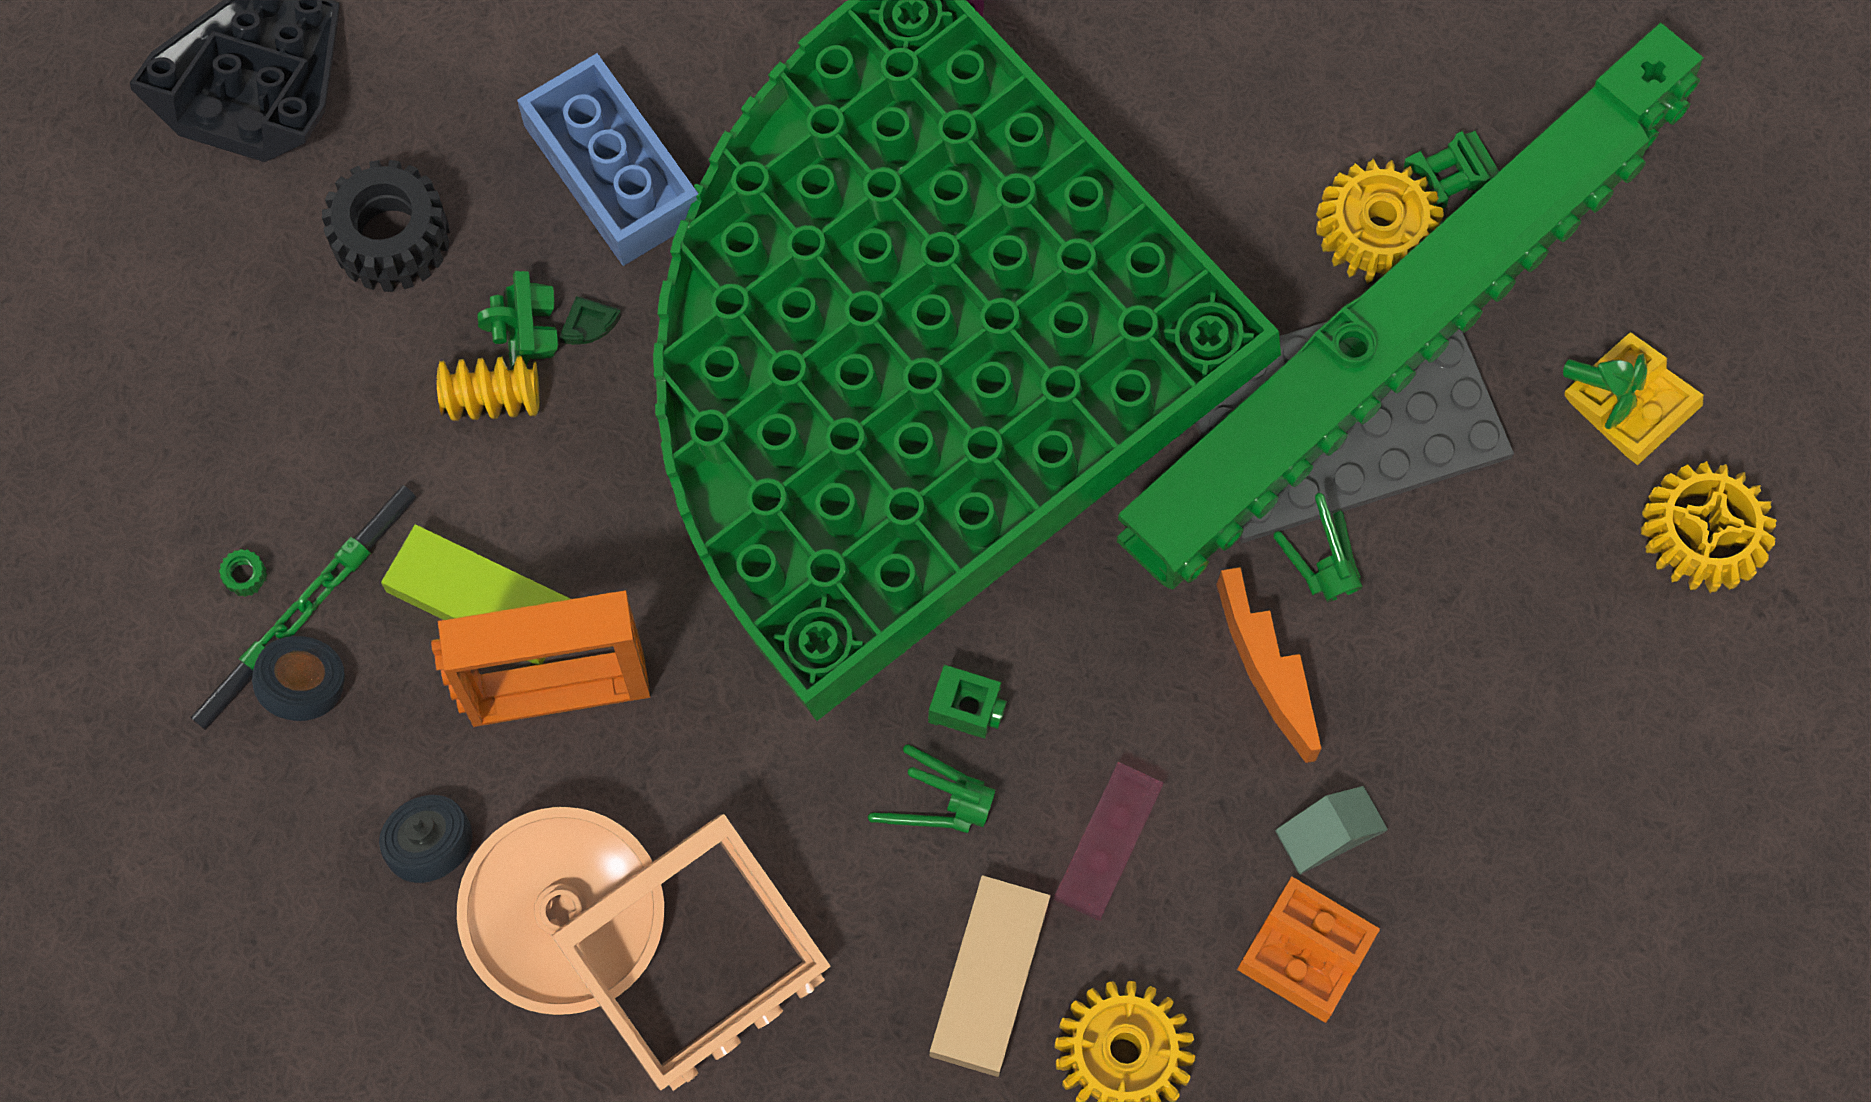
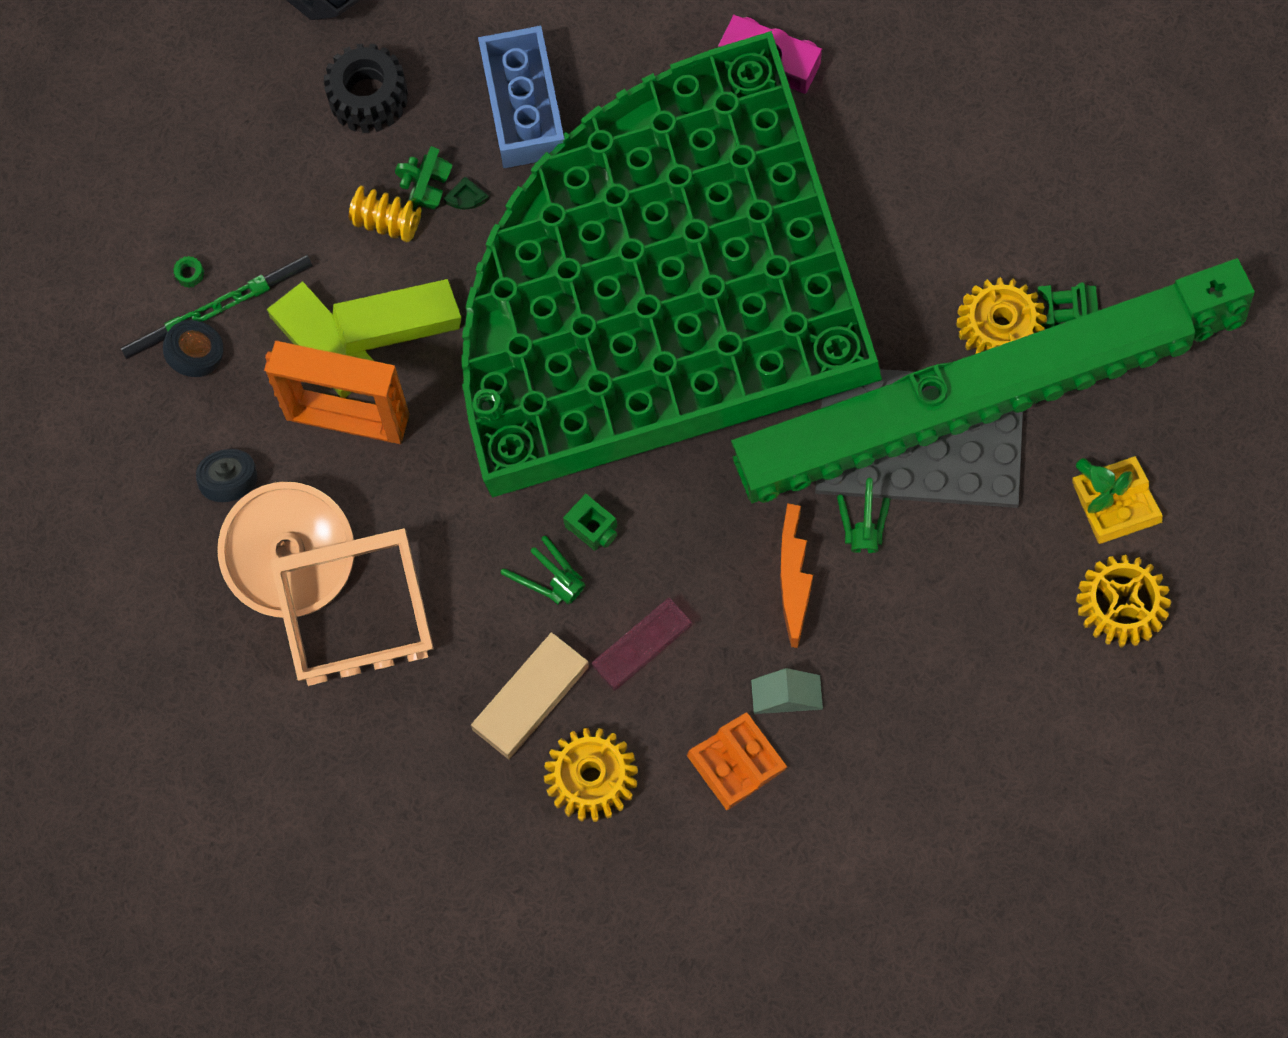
camera: 30 degrees right, 0 degrees up
(569, 523) = (396, 316): none -> lime piece
(760, 580) = (492, 414): none -> green axle

